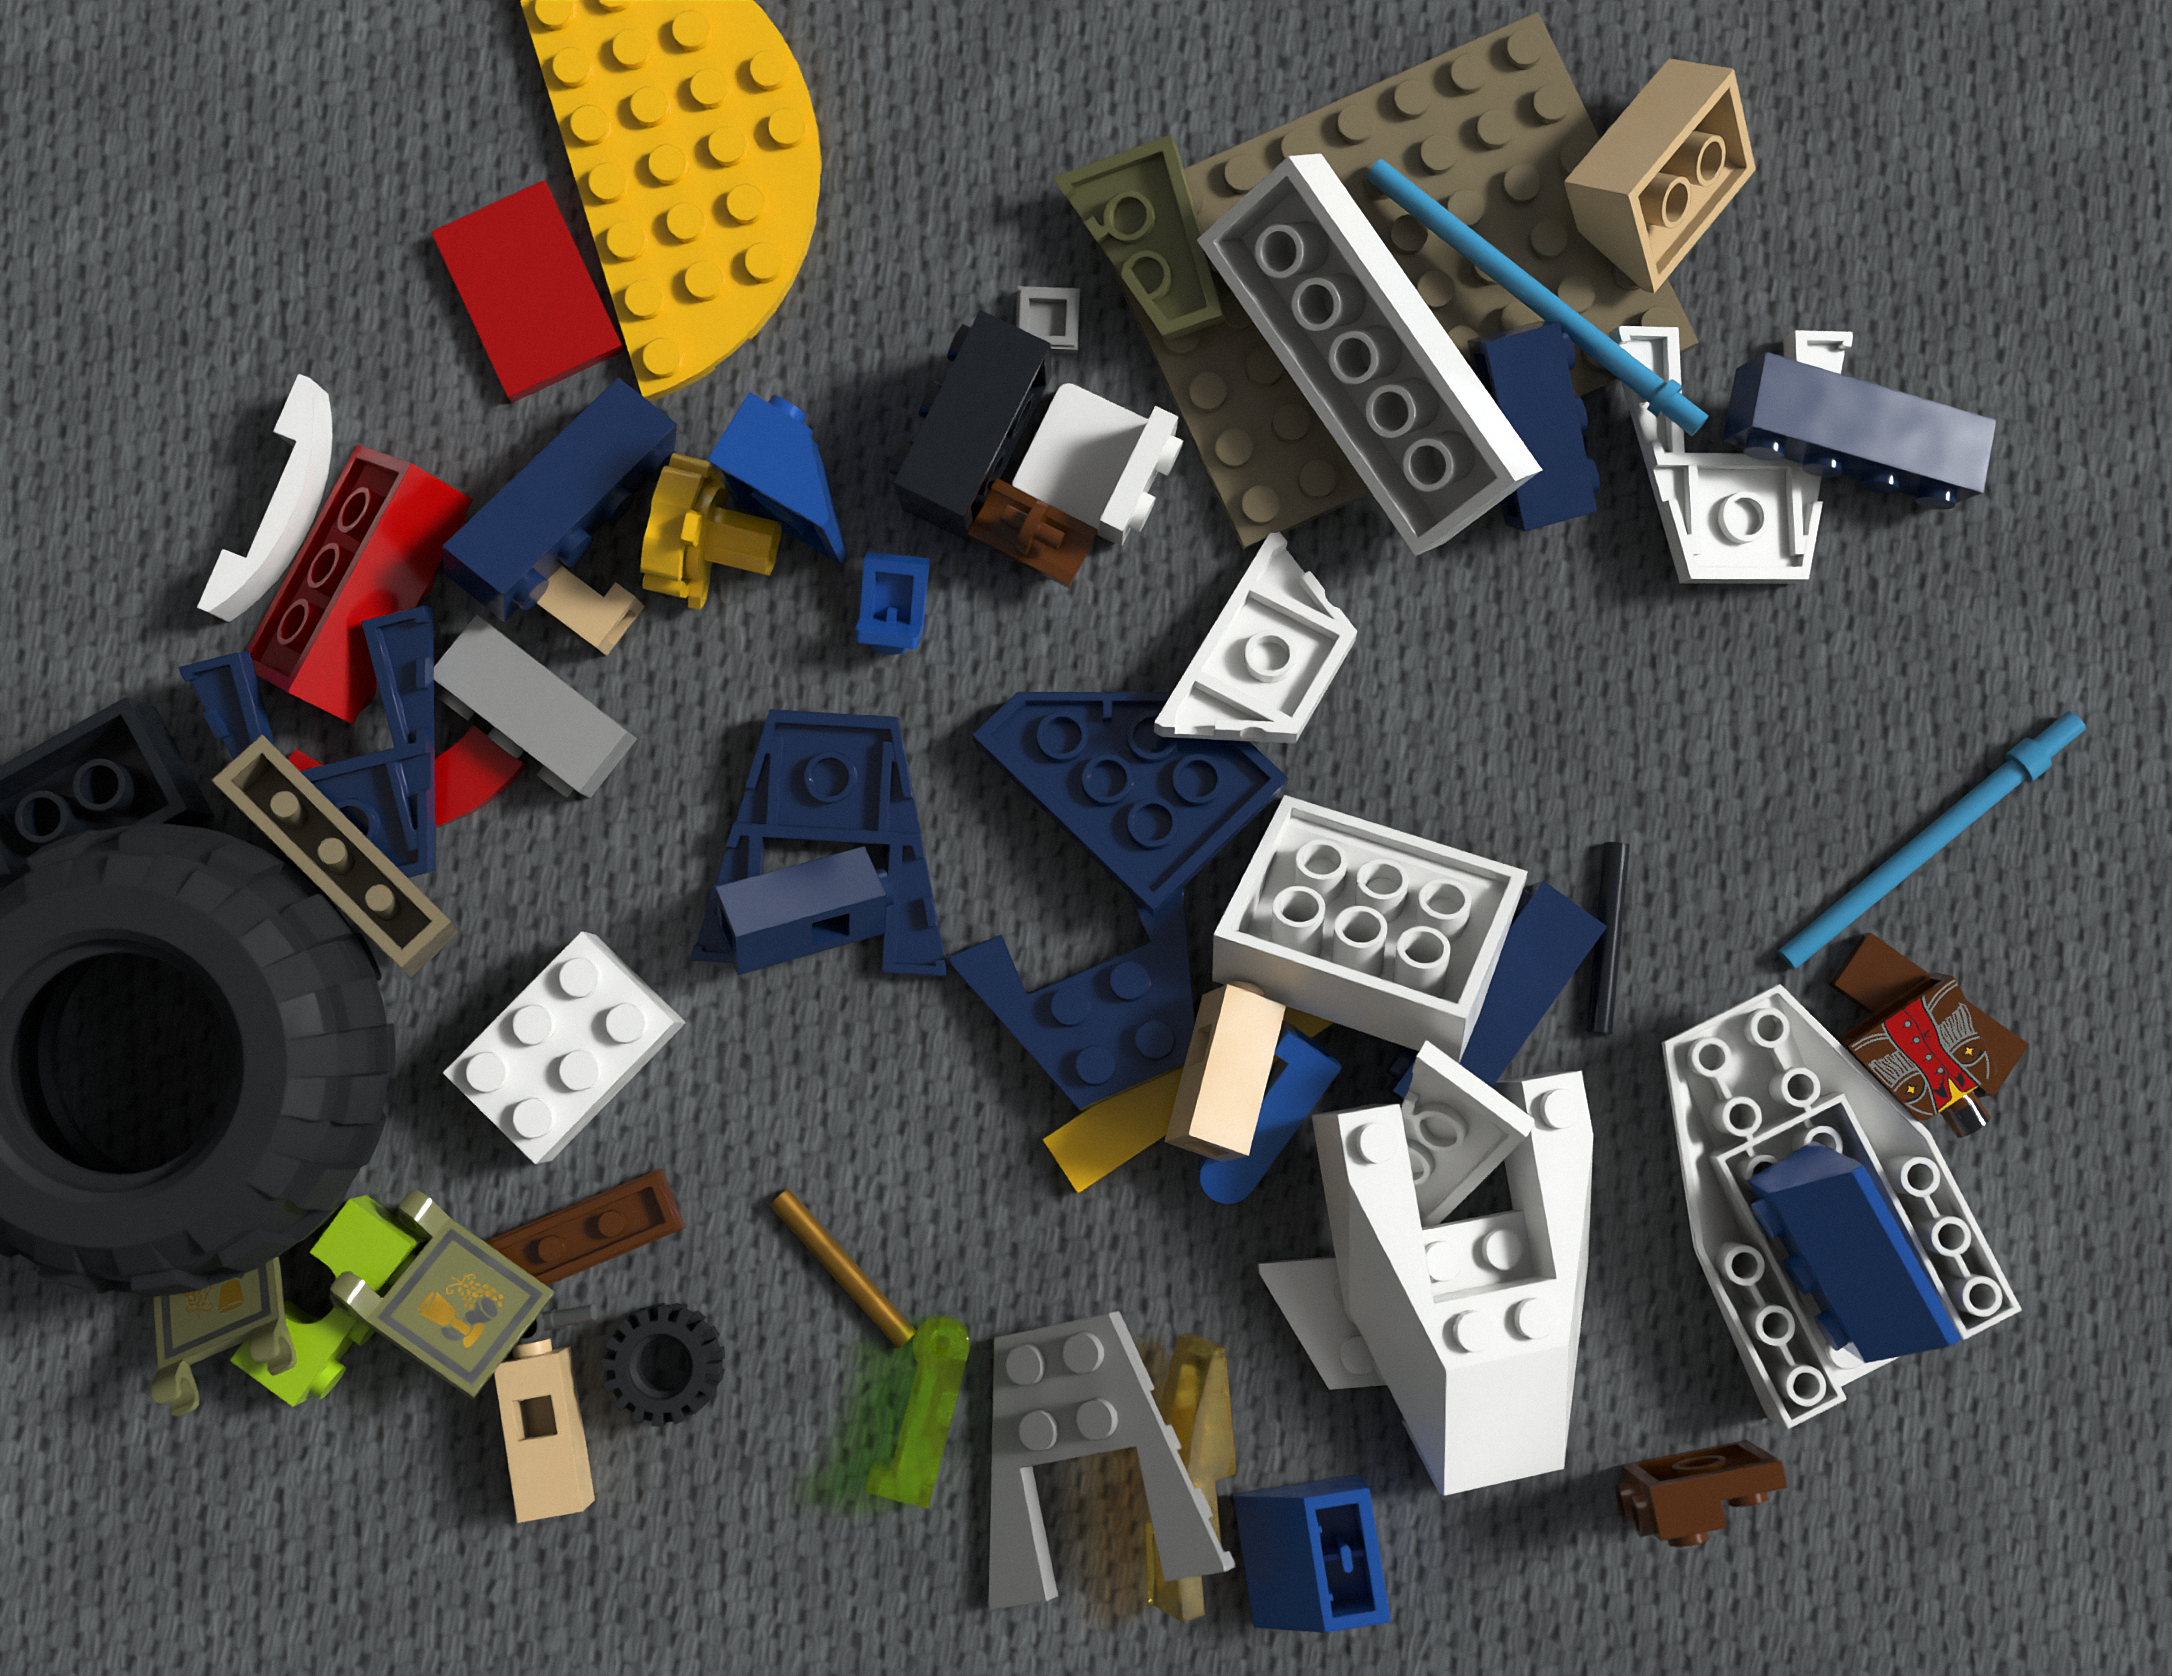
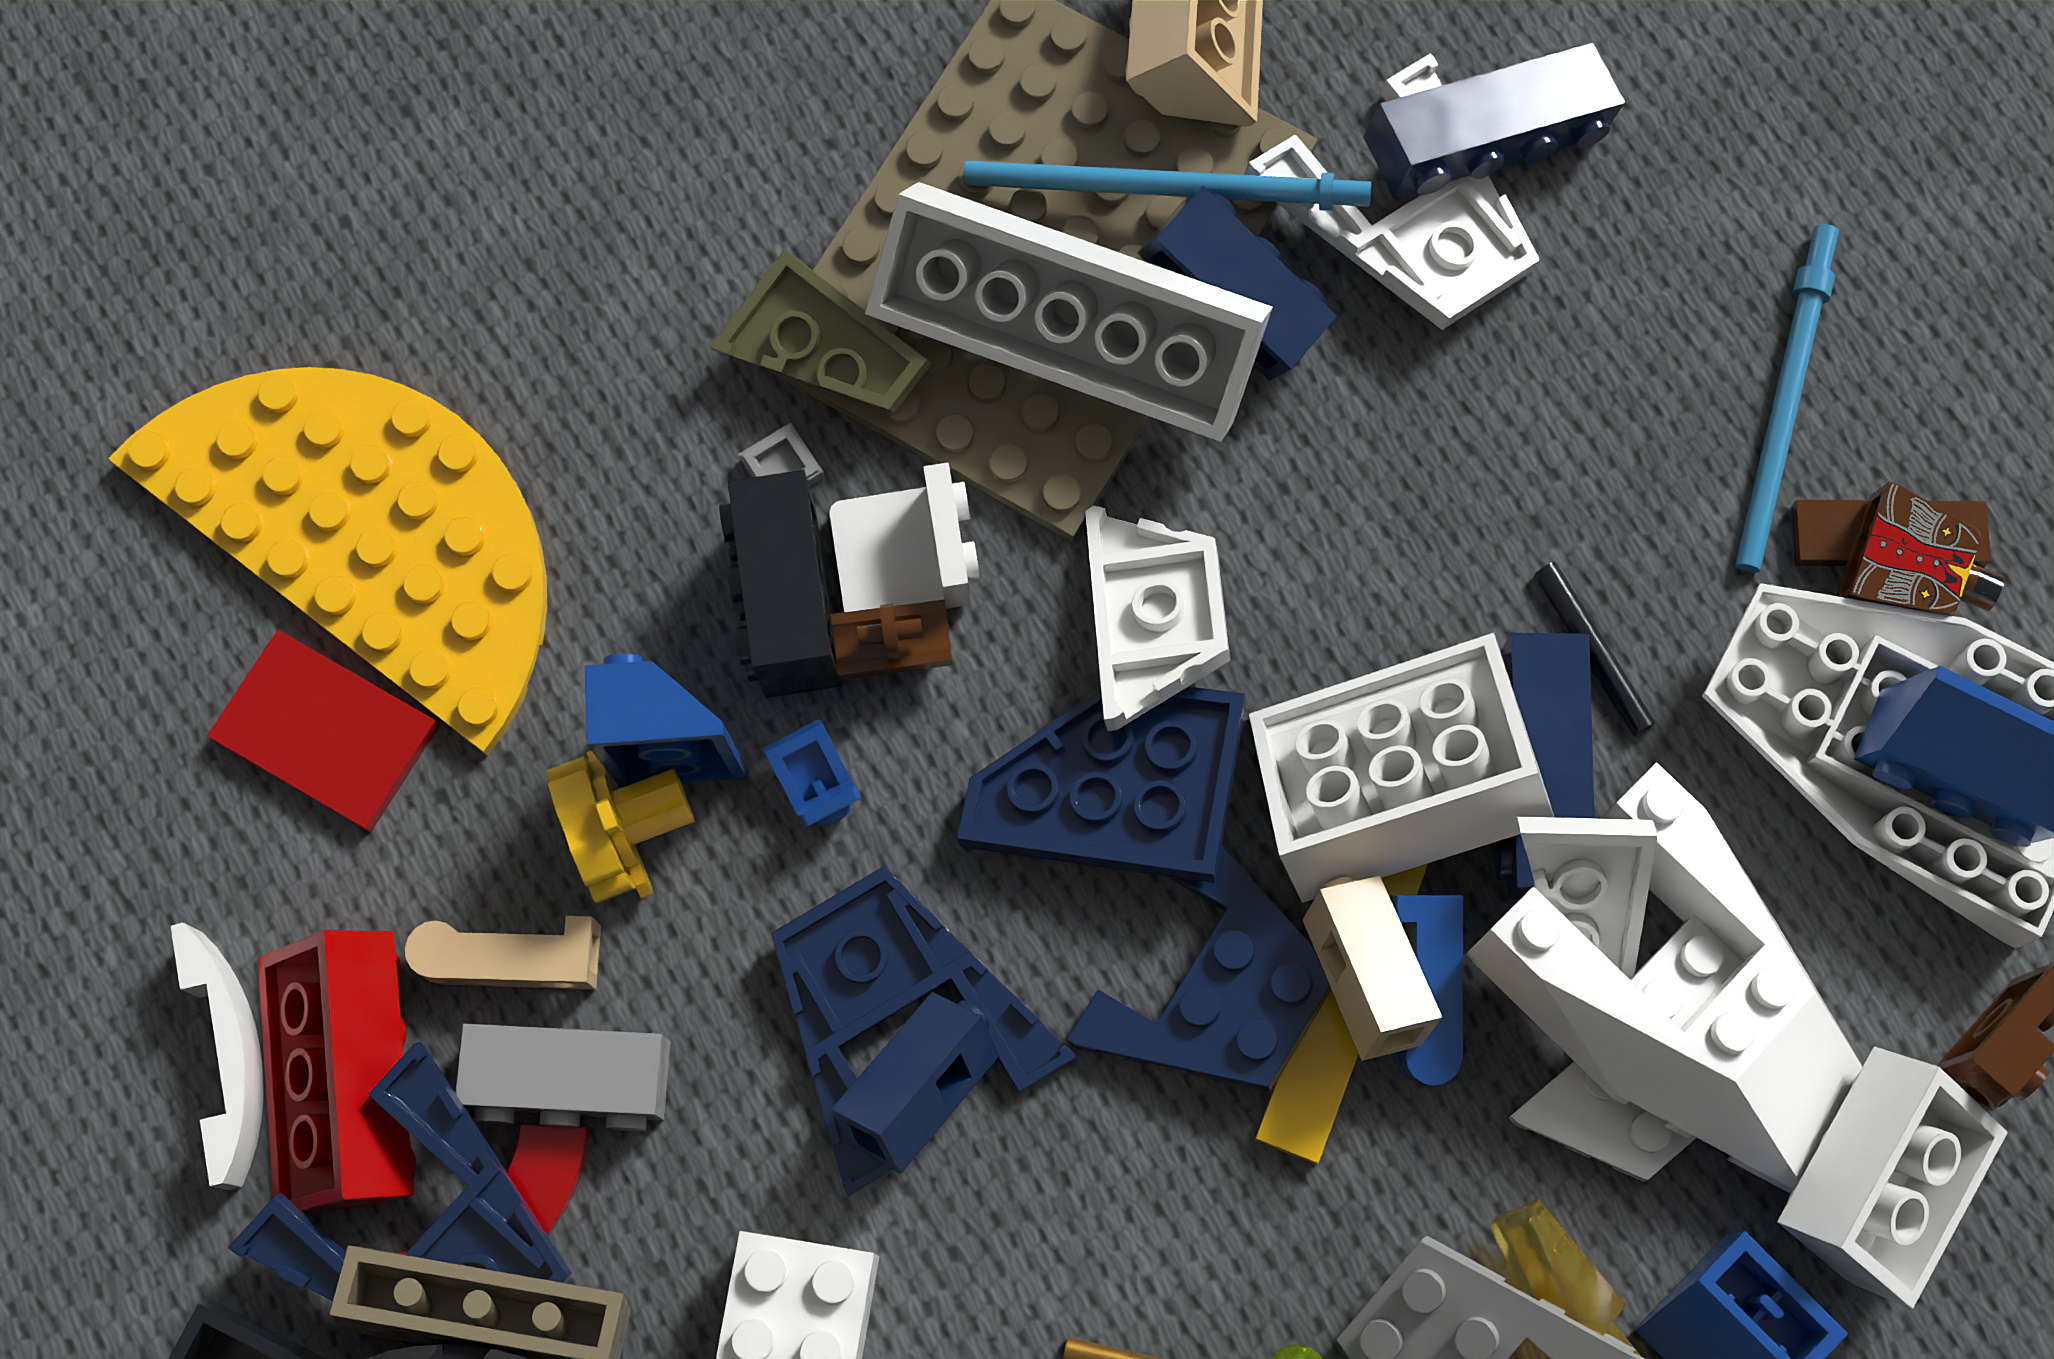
camera: 30 degrees left, 10 degrees down
(560, 501) = (473, 879): dark blue brick -> none
(1522, 1527) = (1893, 1176): none -> white brick

